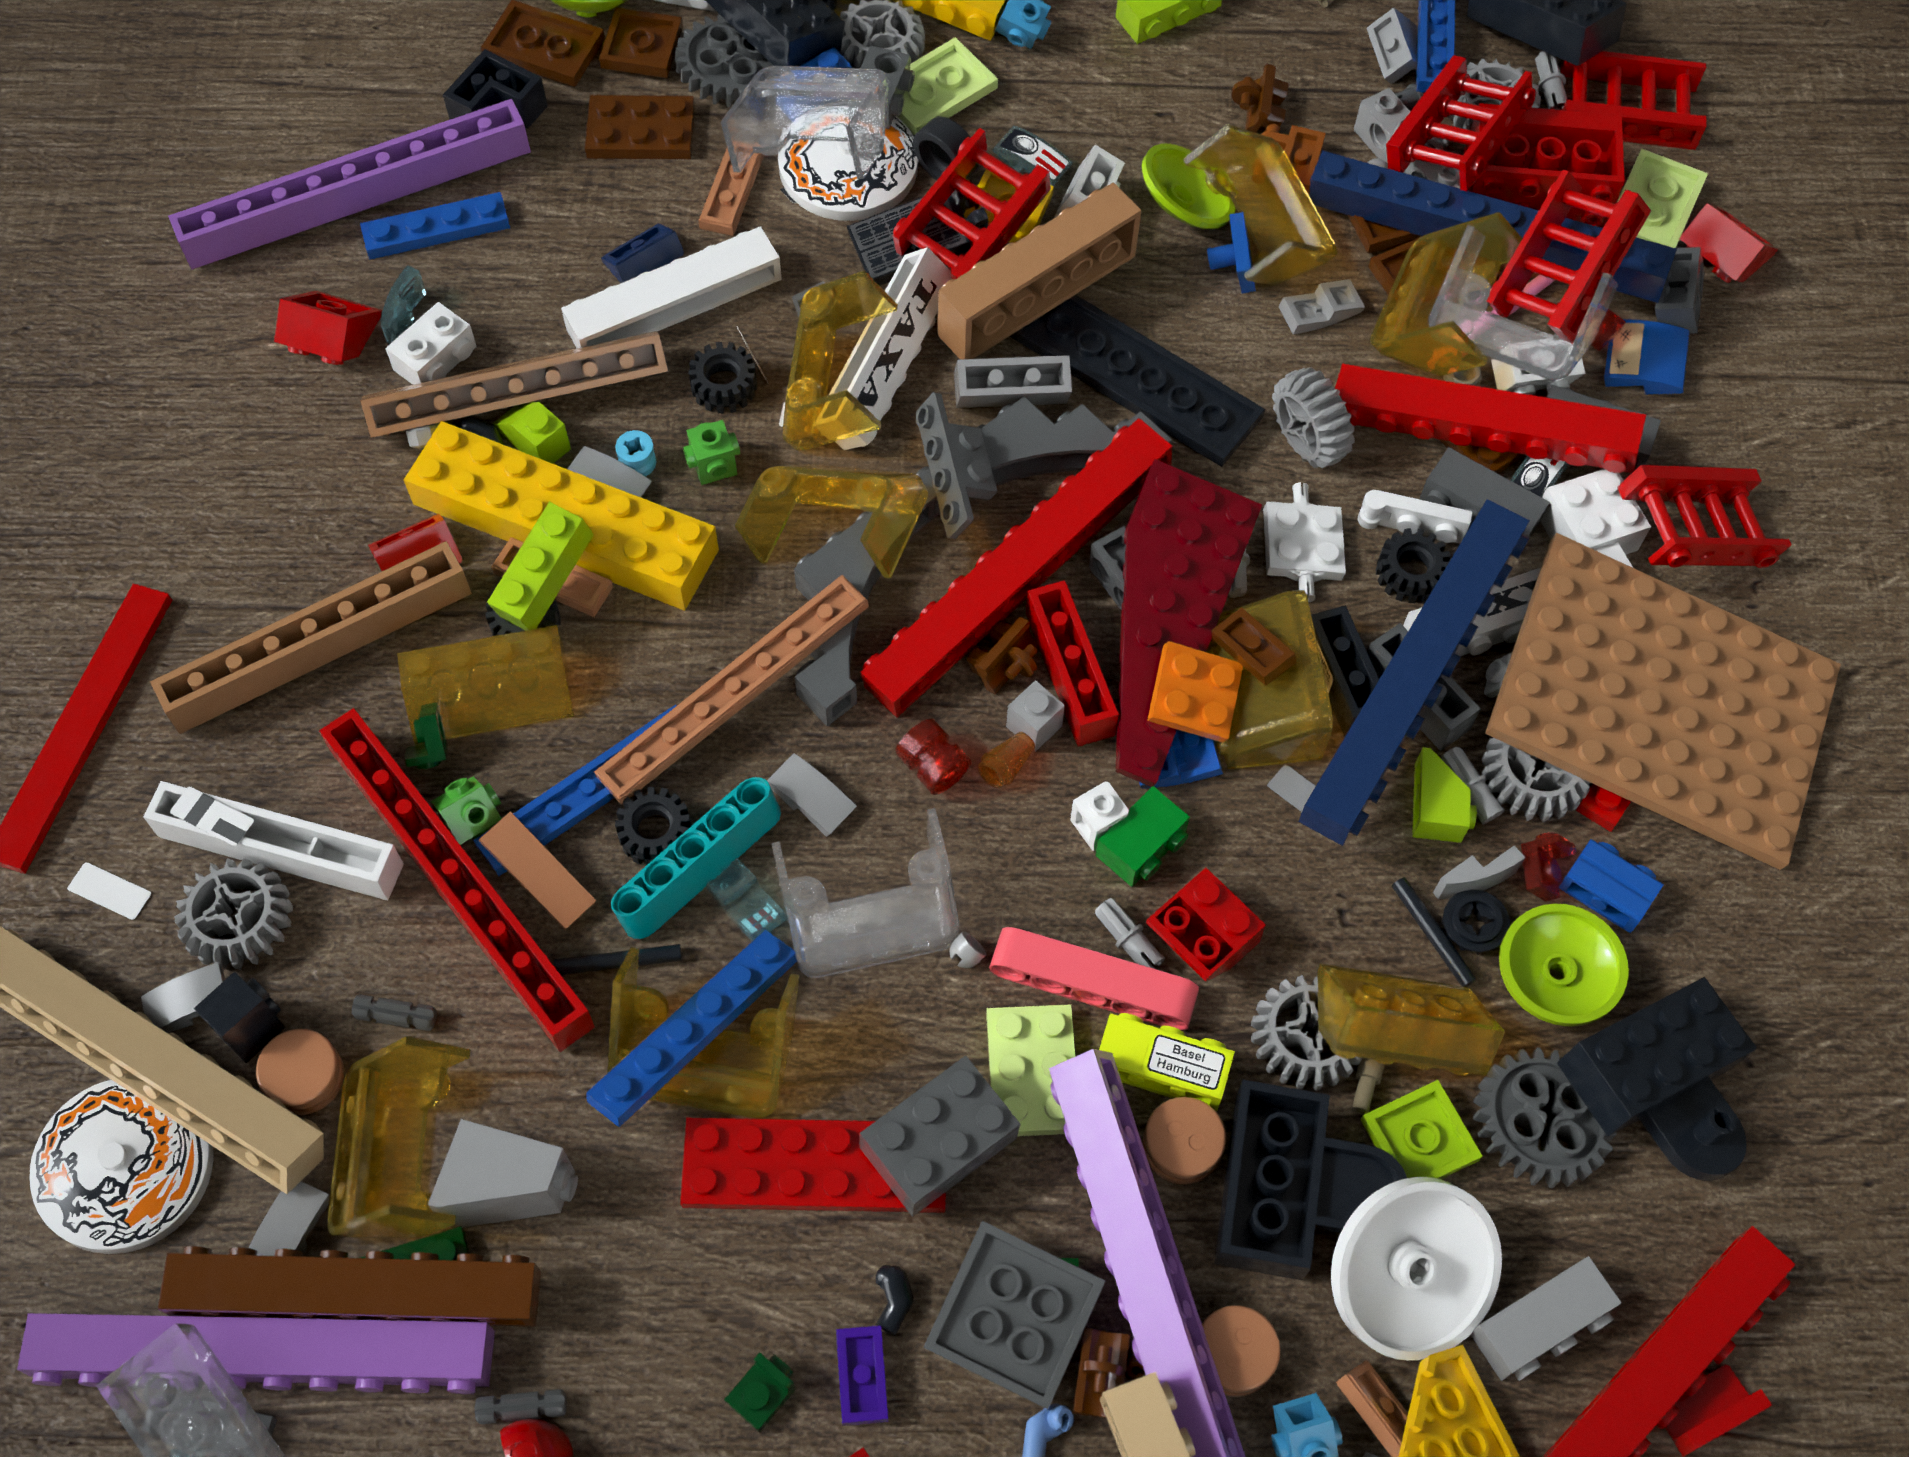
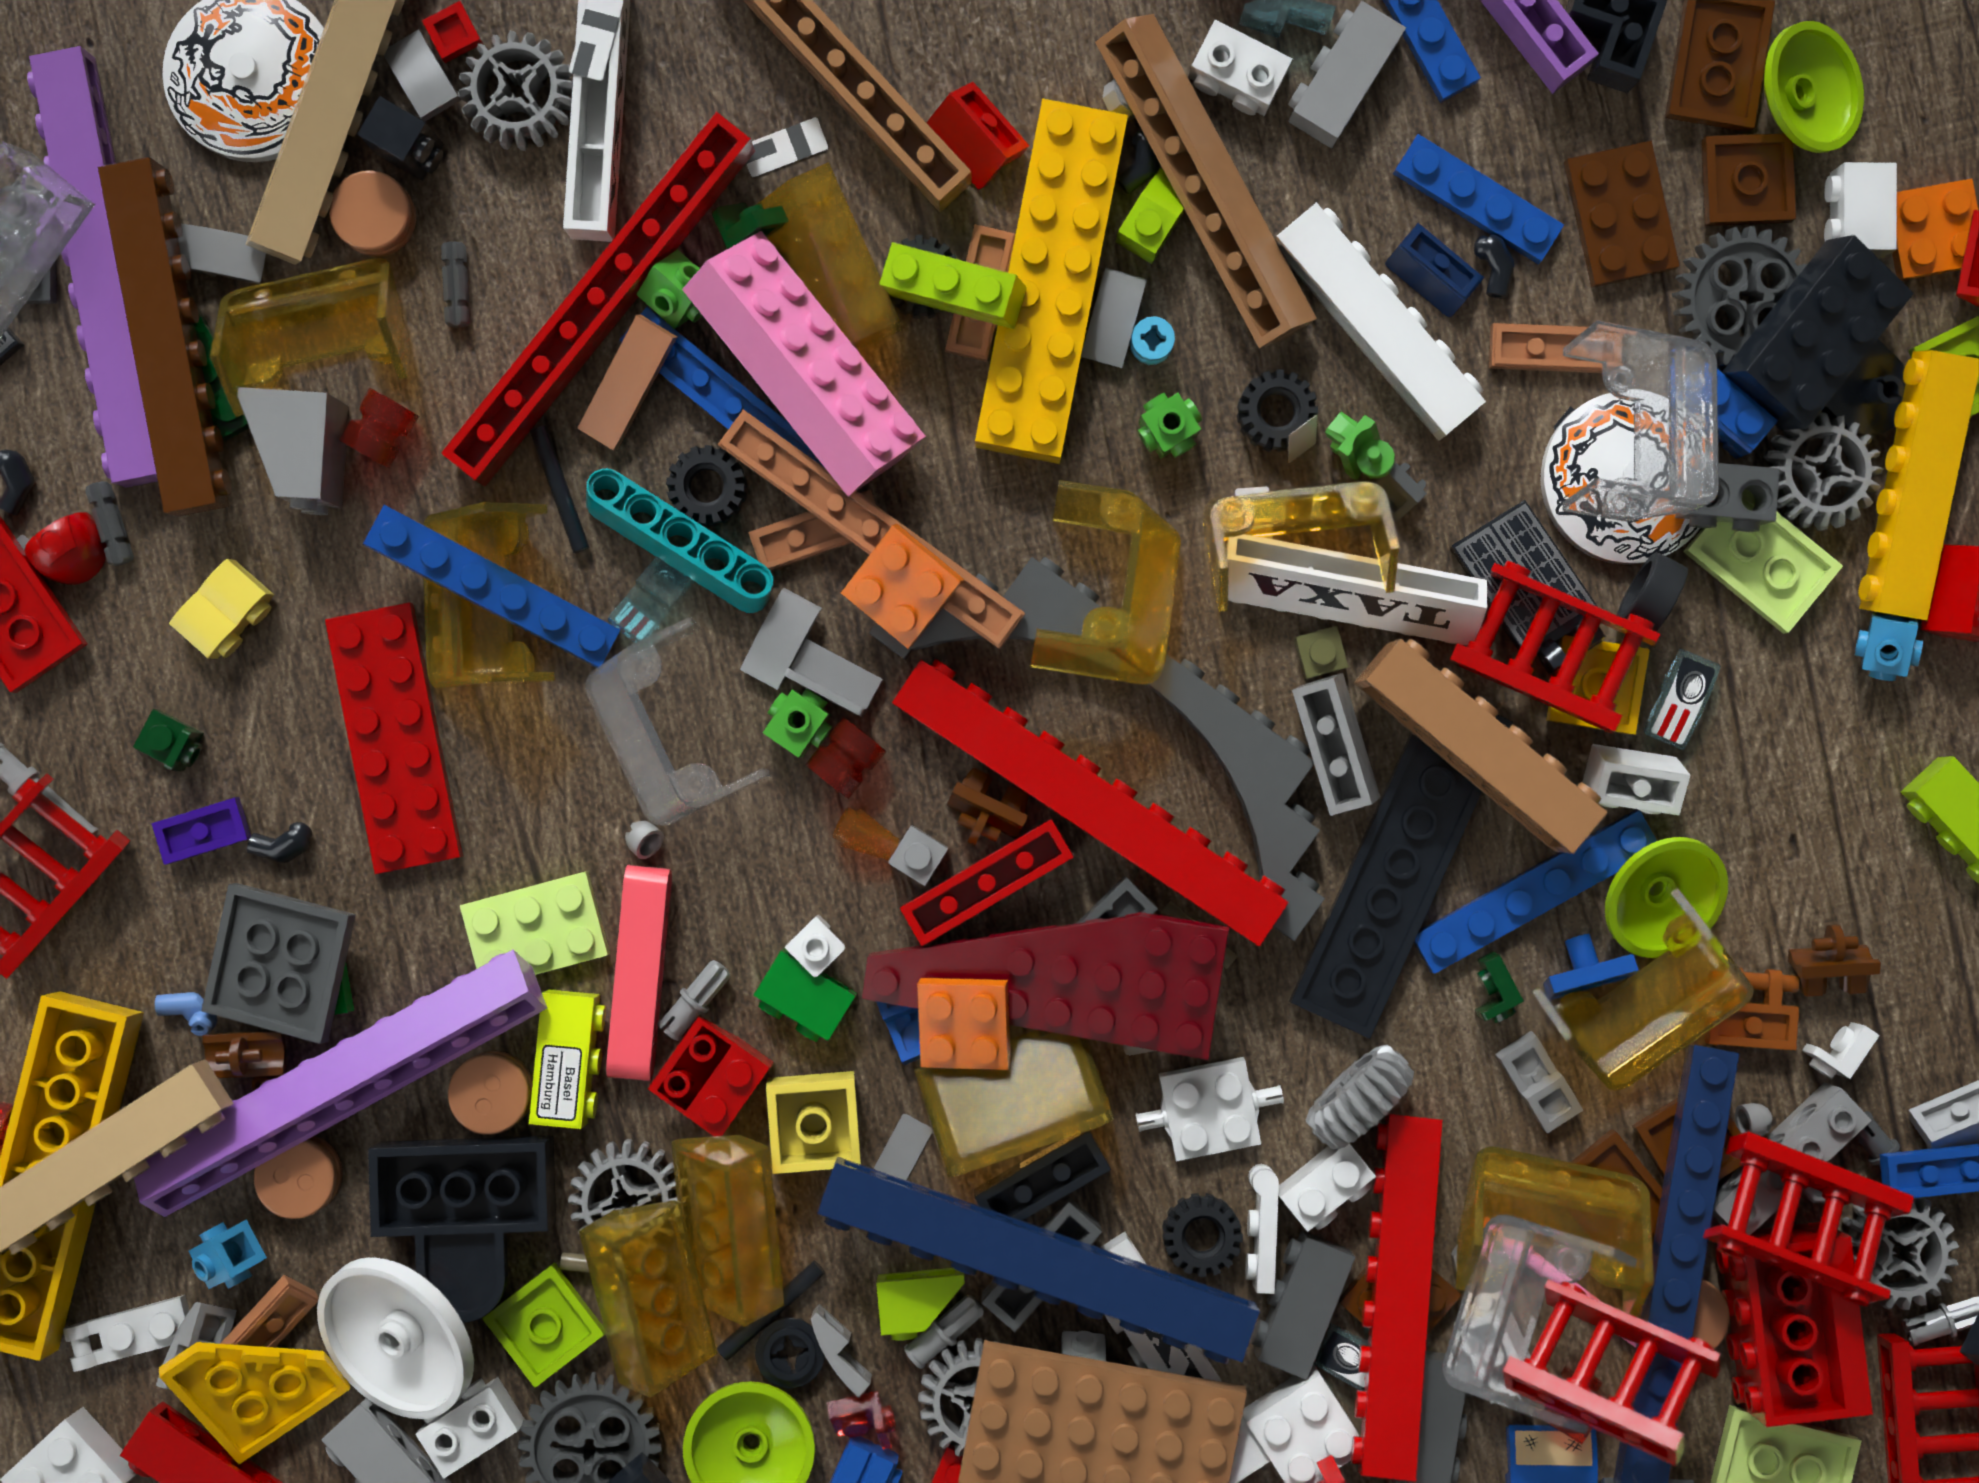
camera: 75 degrees right, 25 degrees up
(155, 961) = (452, 32): none -> red plate
(370, 702) = (786, 147): none -> white sticker
(464, 277) = (1344, 73): none -> light grey brick
(505, 1101) = (379, 428): none -> clear red wheel
(568, 706) = (803, 362): none -> bright pink brick
(595, 215) = (1478, 199): none -> blue plate
(643, 1302) = (222, 610): none -> light yellow brick
(655, 208) = (1501, 262): none -> black arm
(723, 760) = (796, 539): none -> nougat tile
(769, 320) = (1360, 447): none -> bright green hips
(791, 664) = (902, 585): none -> orange plate
(861, 757) = (834, 678): none -> light grey panel
(891, 788) = (783, 727): none -> bright green brick
(932, 381) = (1320, 652): none -> olive plate
(939, 1135) = (426, 855): dark grey brick -> none
(956, 464) = (1196, 707): dark grey bracket -> none
(1170, 290) = (1532, 893): none -> blue plate
(1237, 312) = (1497, 979): none -> dark green bracket
(1253, 646) = (1023, 1078): reddish brown plate -> none
(1262, 847) = (812, 1121): none -> light yellow brick
(1333, 104) = (1849, 1049): none -> white bracket
(1345, 927) = (731, 1223): none -> clear yellow slope
(1382, 460) = (1325, 1185): none -> white brick
(1522, 1228) = (470, 1426): none -> white brick

